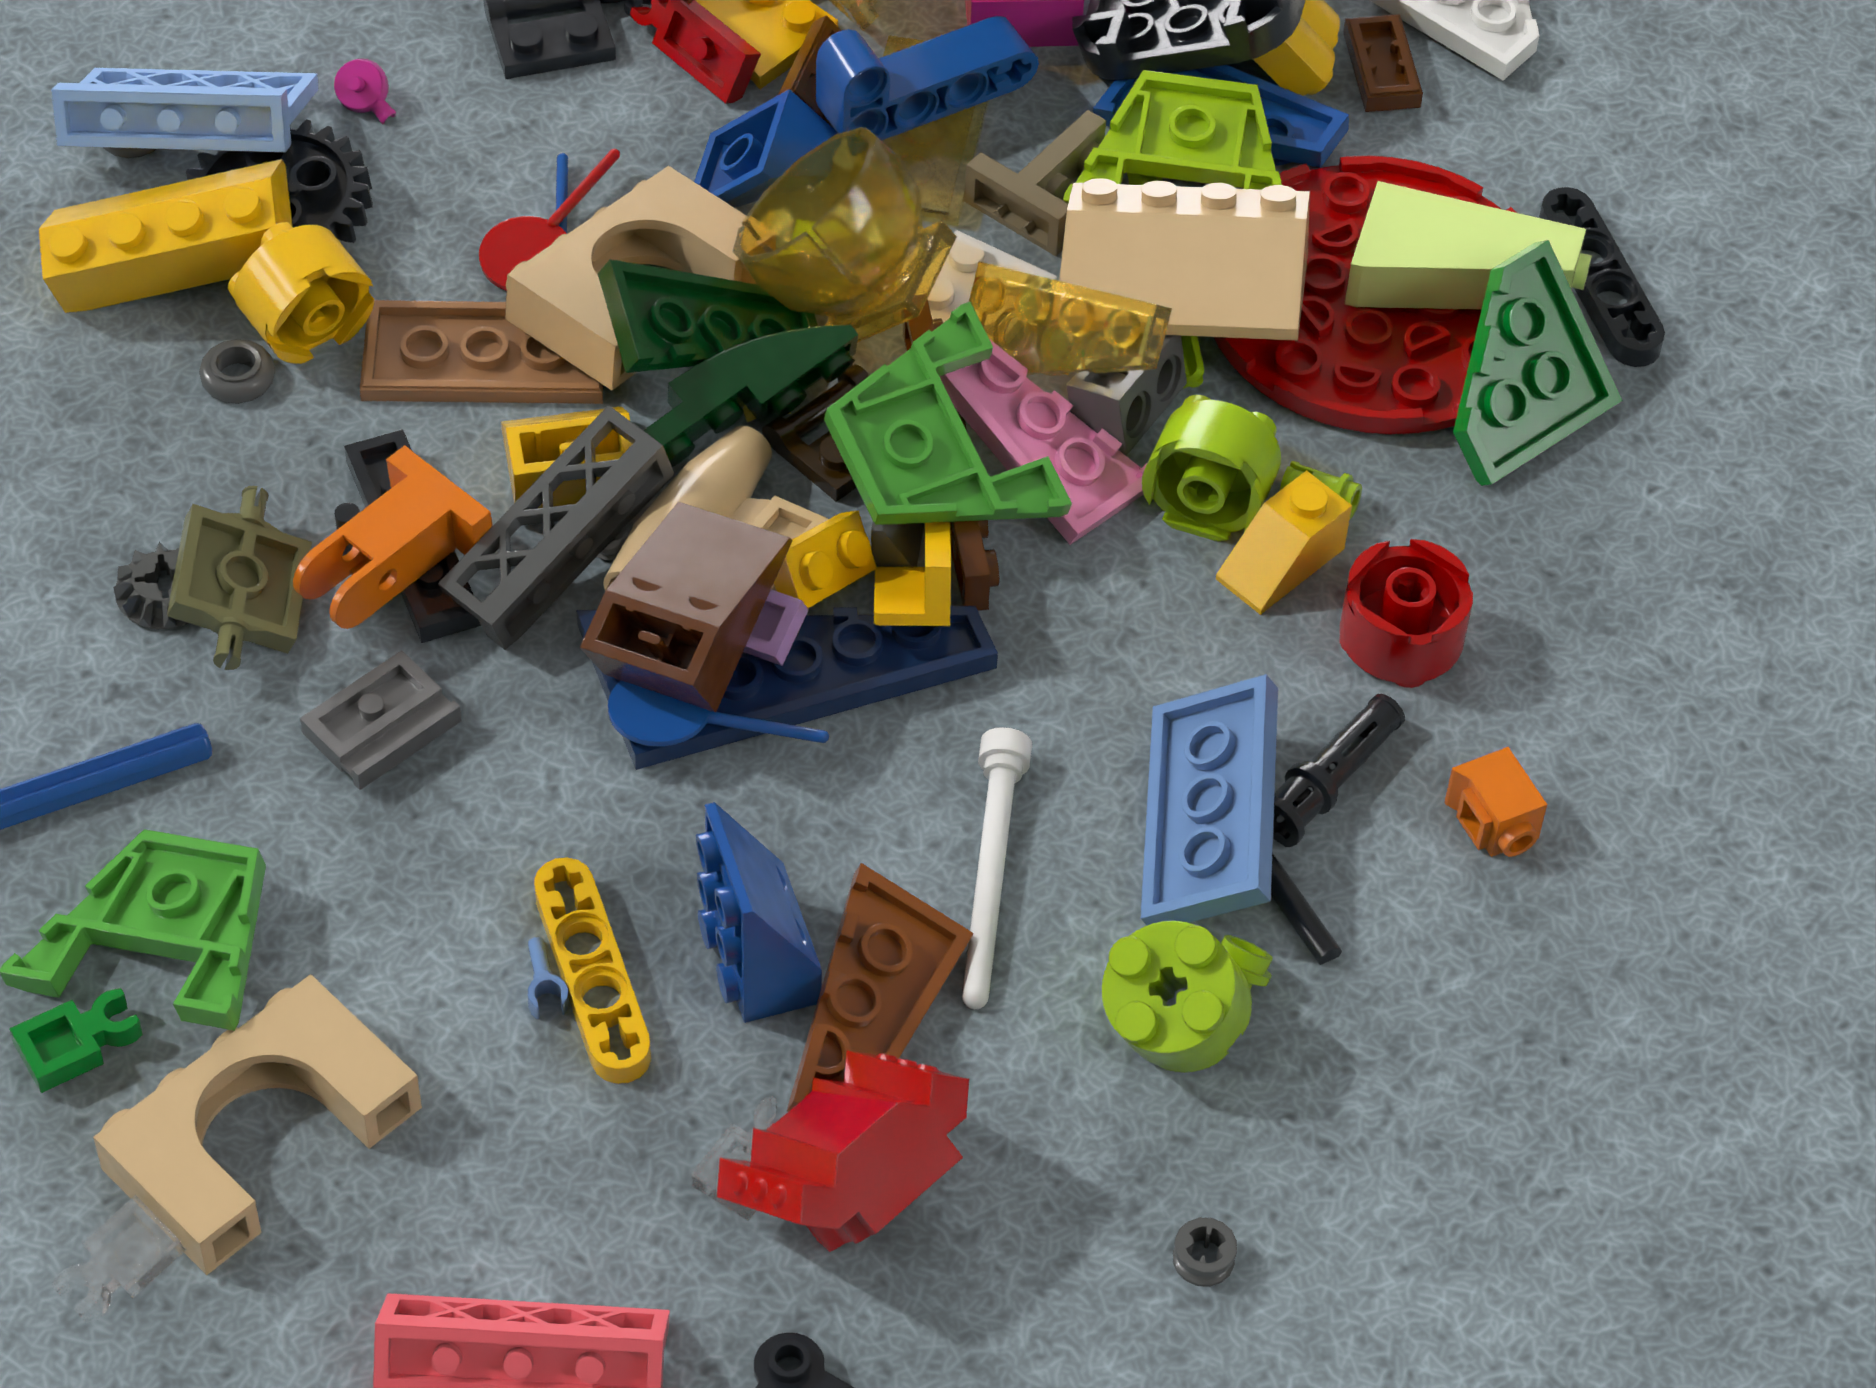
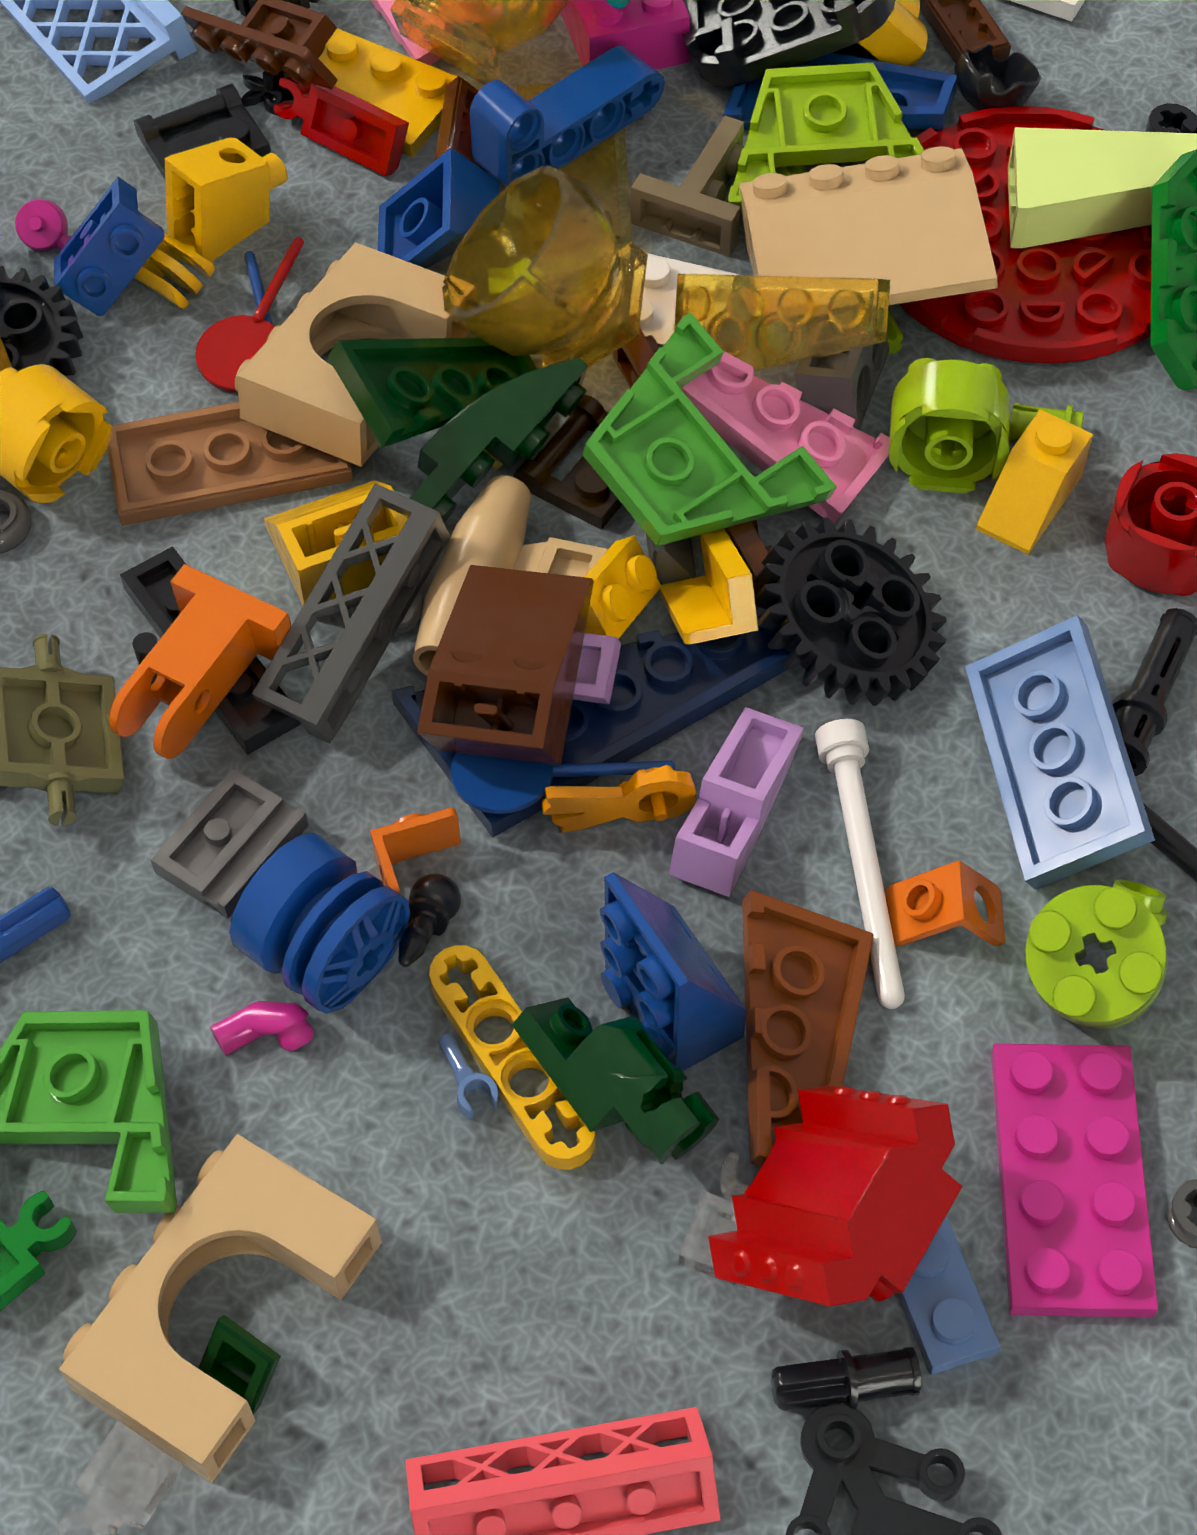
camera: 10 degrees left, 5 degrees up
(261, 1173) = (239, 1361): none -> dark green slope
(363, 886) = (261, 1019): none -> dark pink arm
(417, 124) = (106, 250): none -> blue bracket
(441, 804) = (319, 922): none -> blue wheel
(467, 140) = (165, 263): none -> yellow arm
(545, 92) = (219, 194): none -> yellow torso
(551, 824) = (431, 904): none -> black bar
(554, 752) = (413, 837): none -> orange bracket
(681, 1004) = (616, 1077): none -> dark green plate
(790, 760) = (646, 796): none -> light orange piece
(815, 1316) = (847, 1379): none -> black axle
(880, 784) = (734, 801): none -> lavender slope
(929, 1267) = (947, 1307): none -> medium blue plate
(1055, 916) = (942, 902): none -> orange bracket
(1061, 616) = (849, 611): none -> black gear
(1091, 1195) = (1072, 1181): none -> dark pink plate
(1389, 128) = (993, 81): none -> black hair

